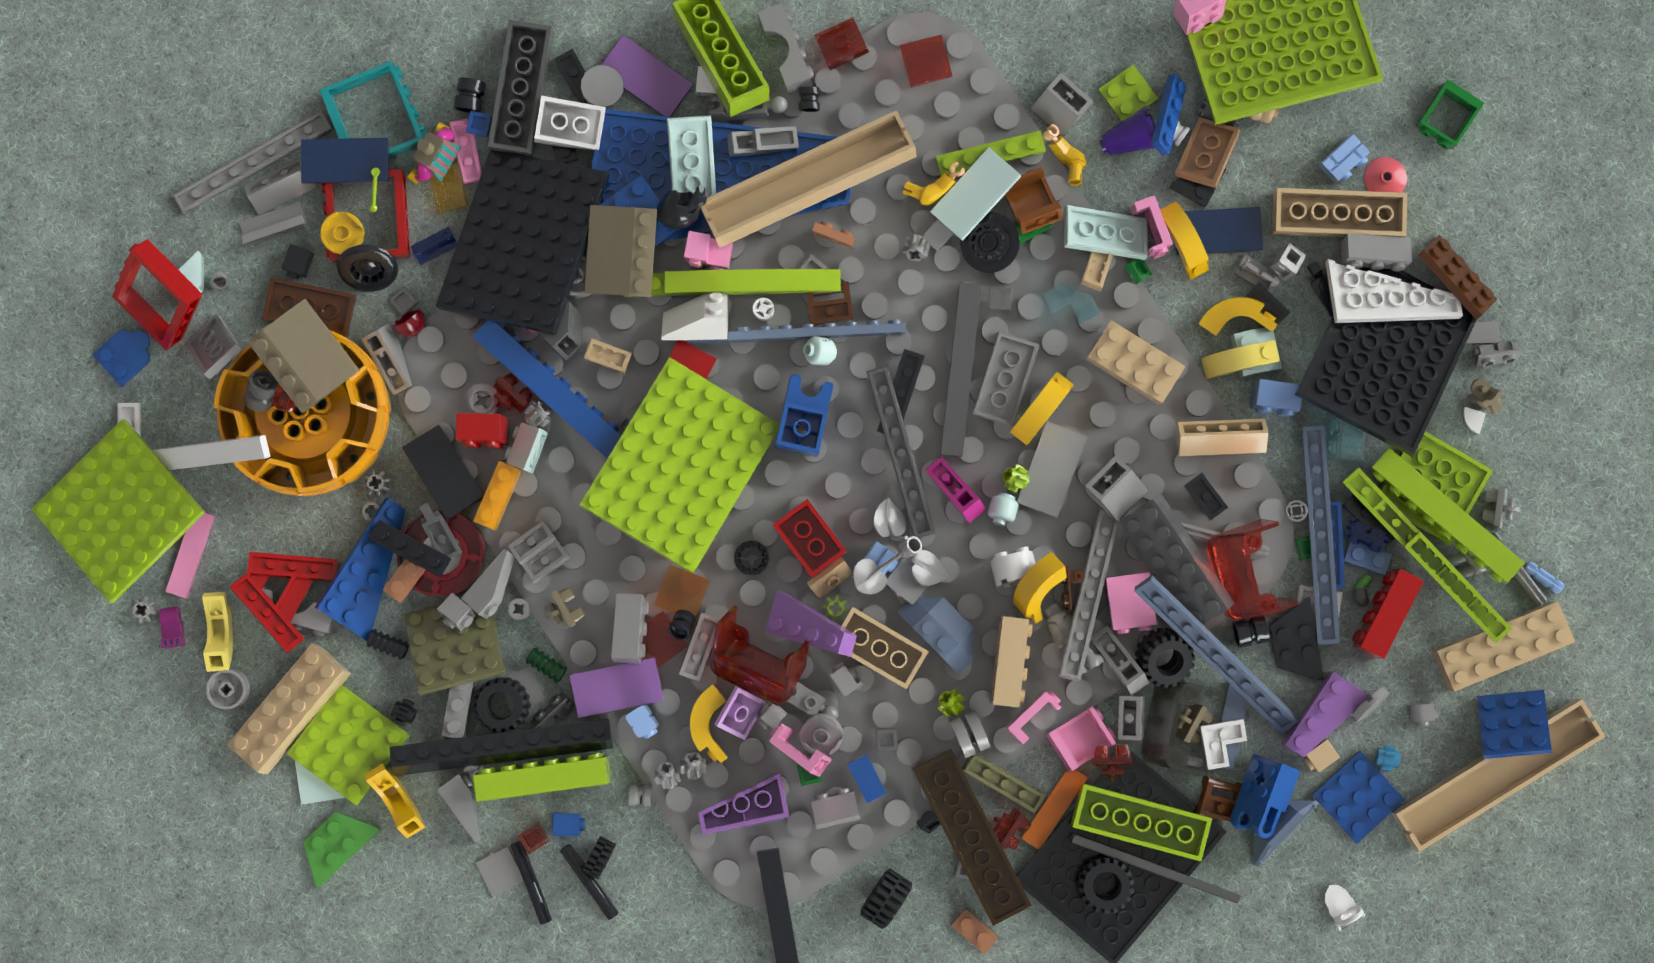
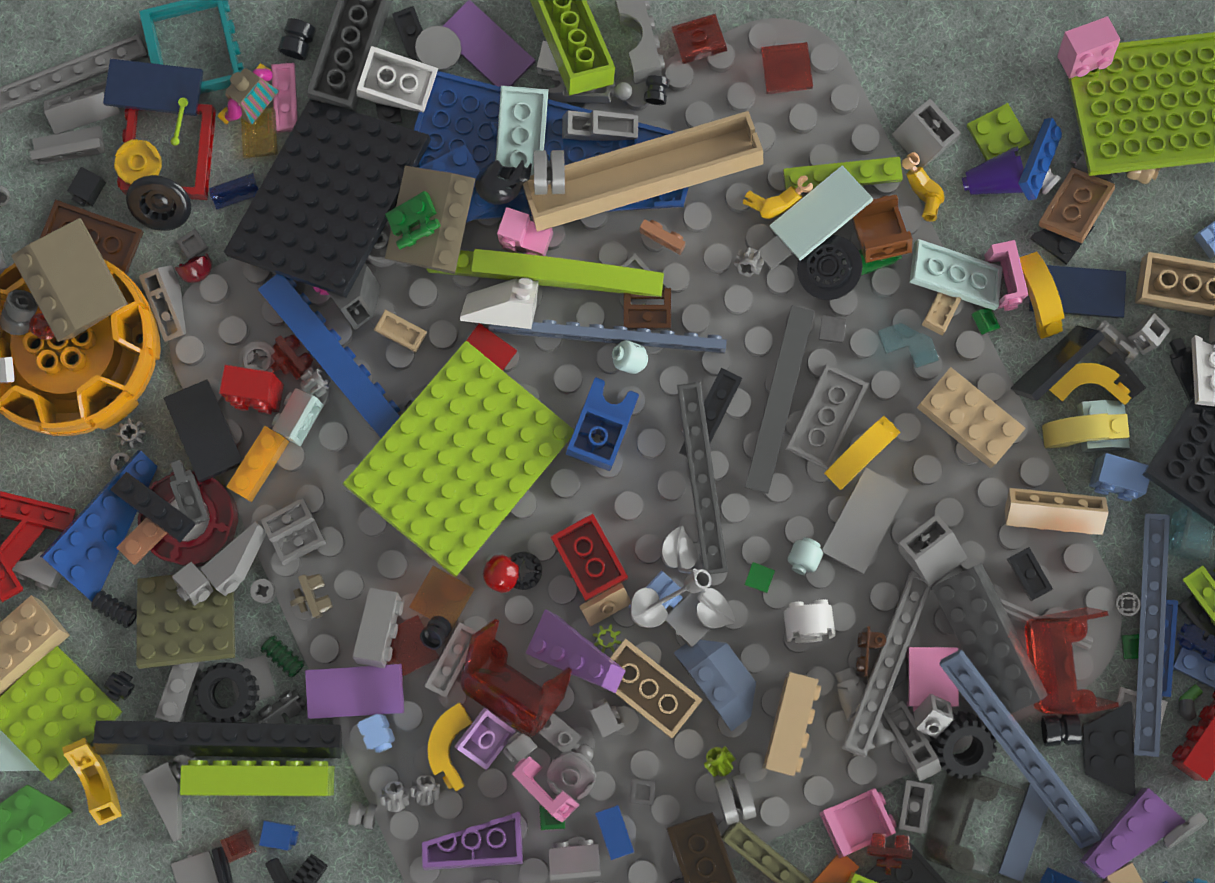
camera: 10 degrees right, 5 degrees down
(479, 124) = (301, 69): blue tile -> none
(601, 251) = (410, 214): none -> green plate
(723, 194) = (549, 172): none -> light grey wheel
(732, 563) = (500, 573): none -> red hair
(761, 309) = (575, 299): white wheel -> none
(955, 489) = (756, 528): dark pink slope -> none
(964, 534) = (759, 577): none -> green tile
(1015, 478) = (823, 524): lime gear -> none
(1029, 711) = (786, 797): bright pink panel -> none
(1036, 584) = (831, 642): yellow arch -> none
(1135, 636) = (933, 716): none -> light grey brick
(1189, 722) = (981, 820): dark tan hips -> none
(1207, 300) = (1057, 362): none -> black tile
(1215, 738) = (1008, 842): white plate -> none

